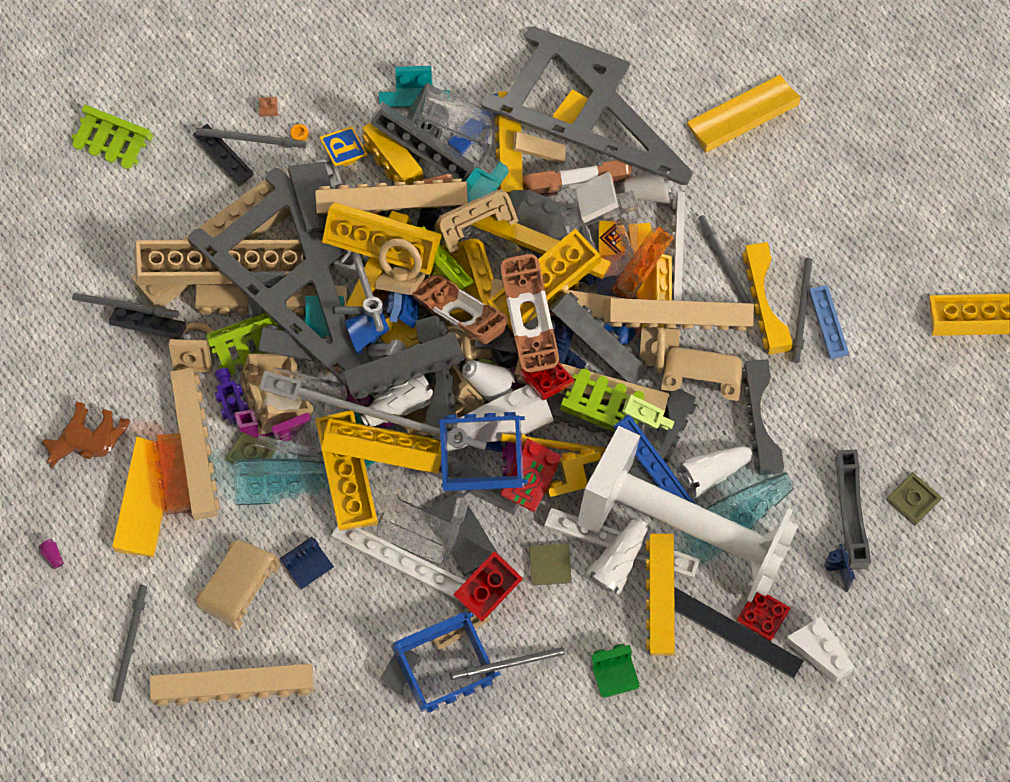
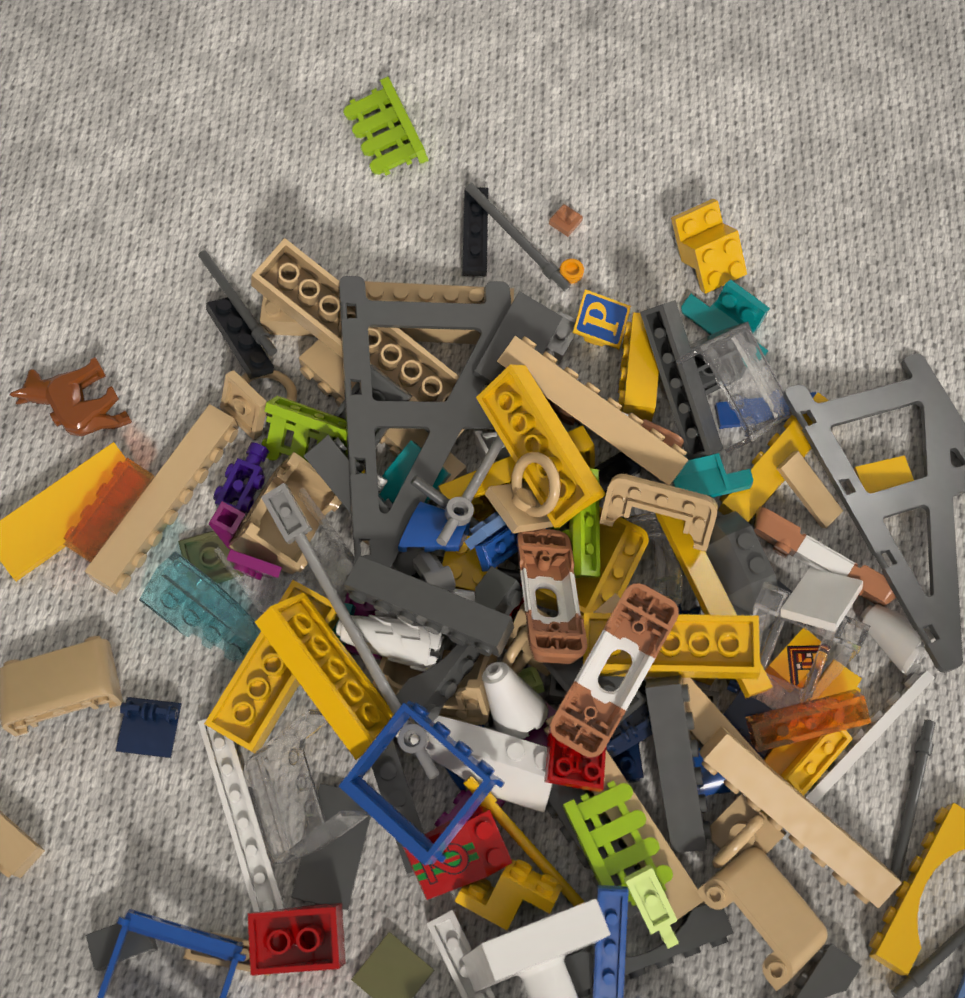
camera: 40 degrees right, 0 degrees up
(365, 57) = (709, 245): none -> yellow bracket

